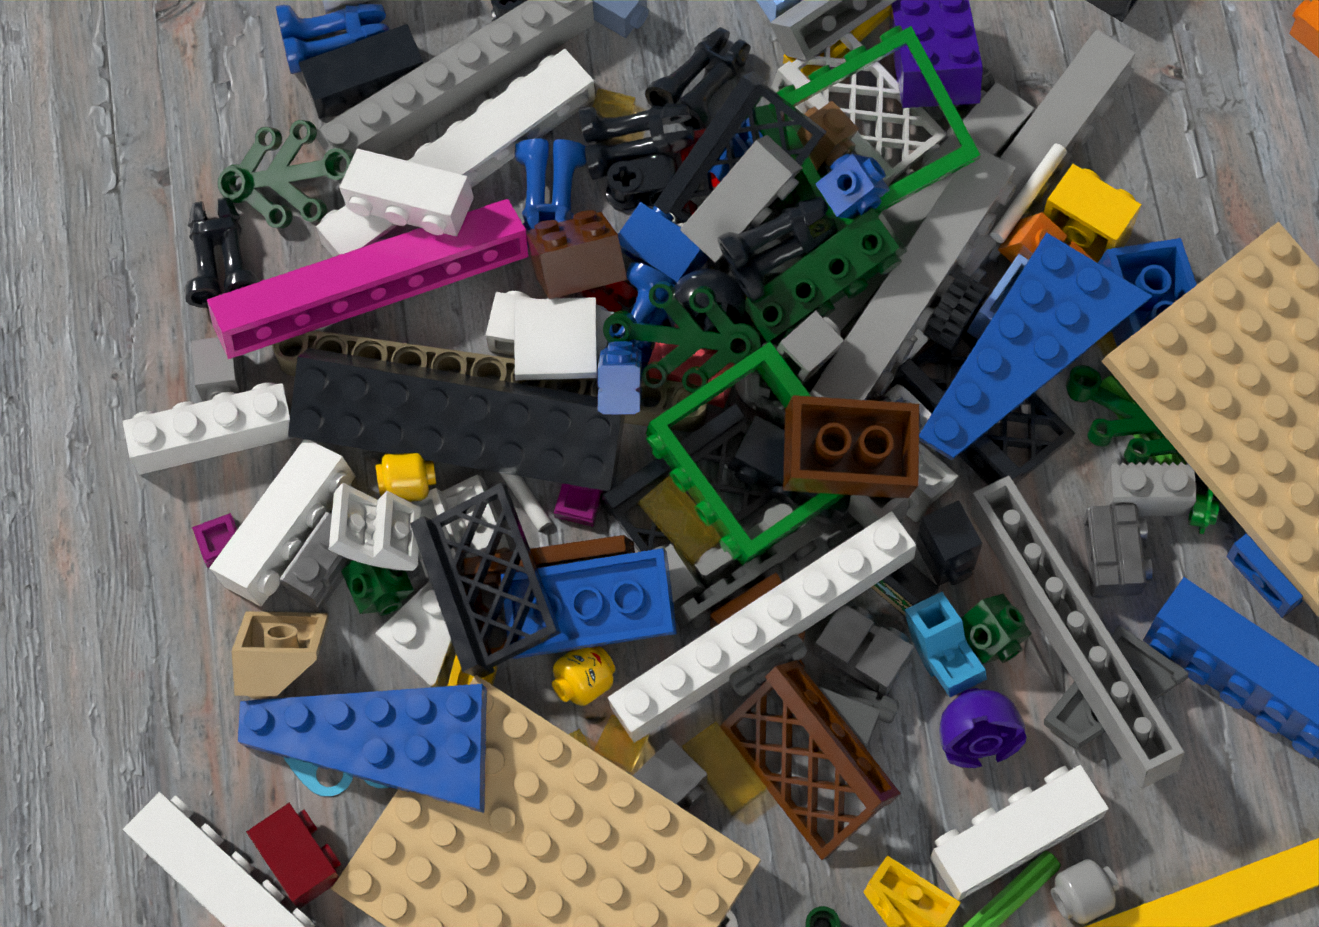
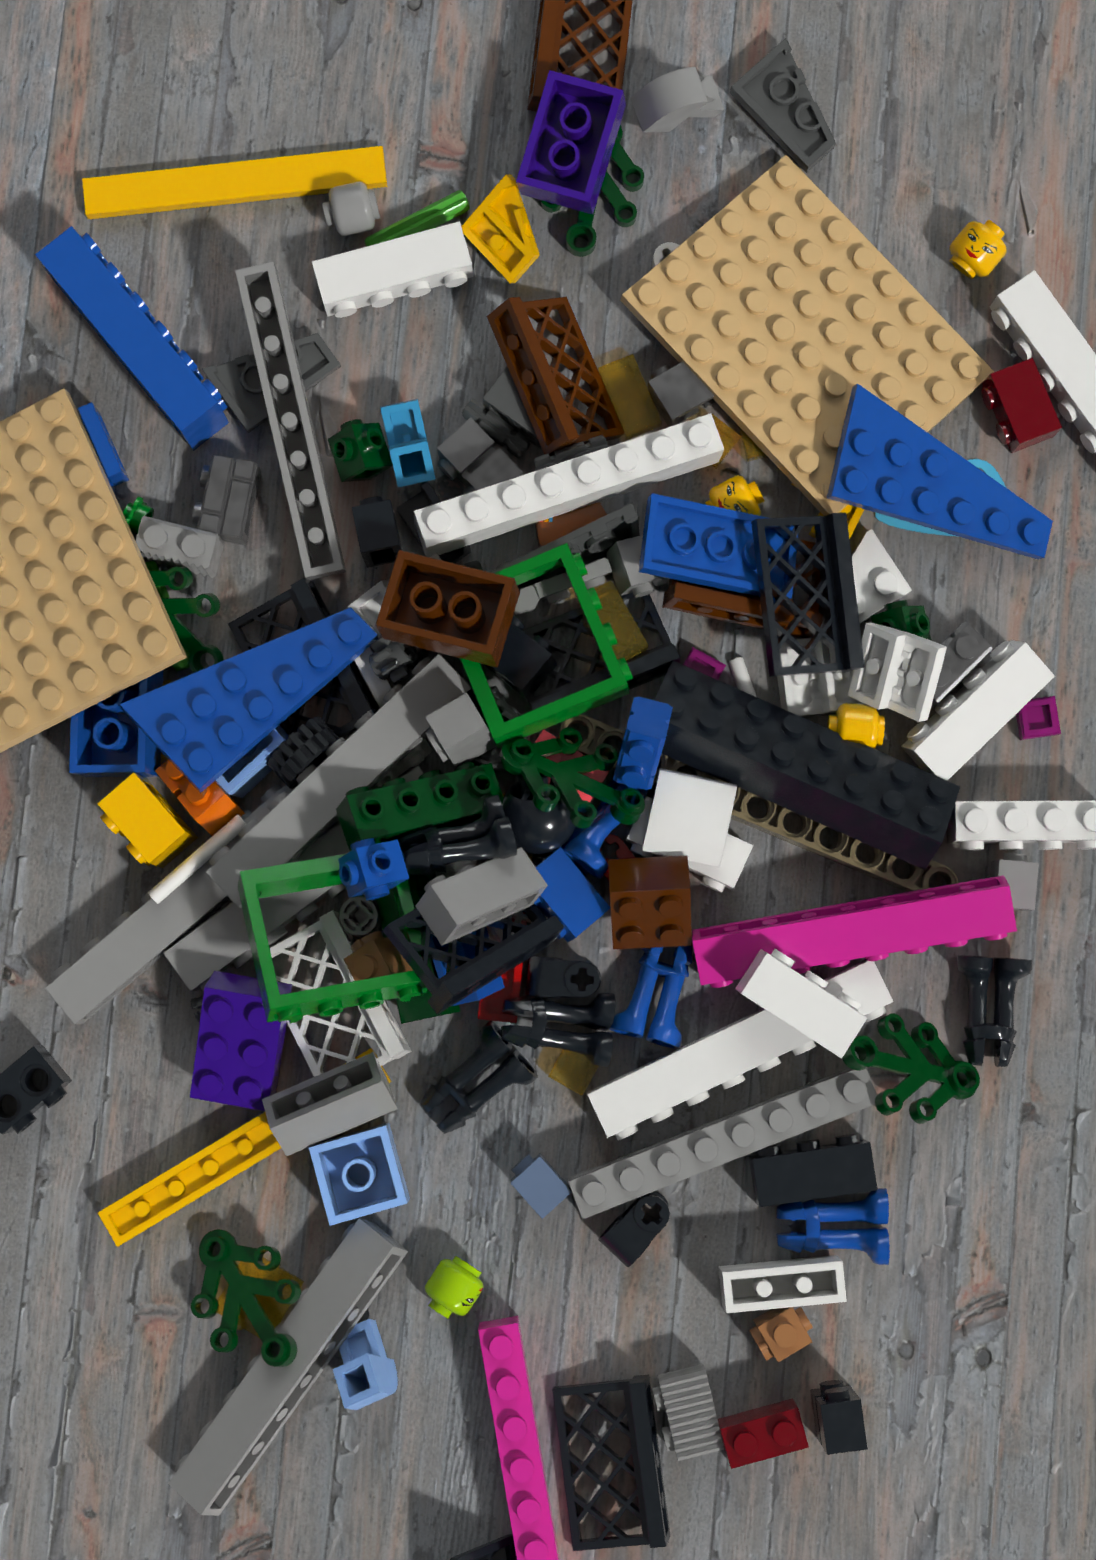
camera: 170 degrees left, 15 degrees up
(274, 650) = (1003, 593): tan slope -> none
(980, 726) = (398, 370): dark purple cylinder -> none

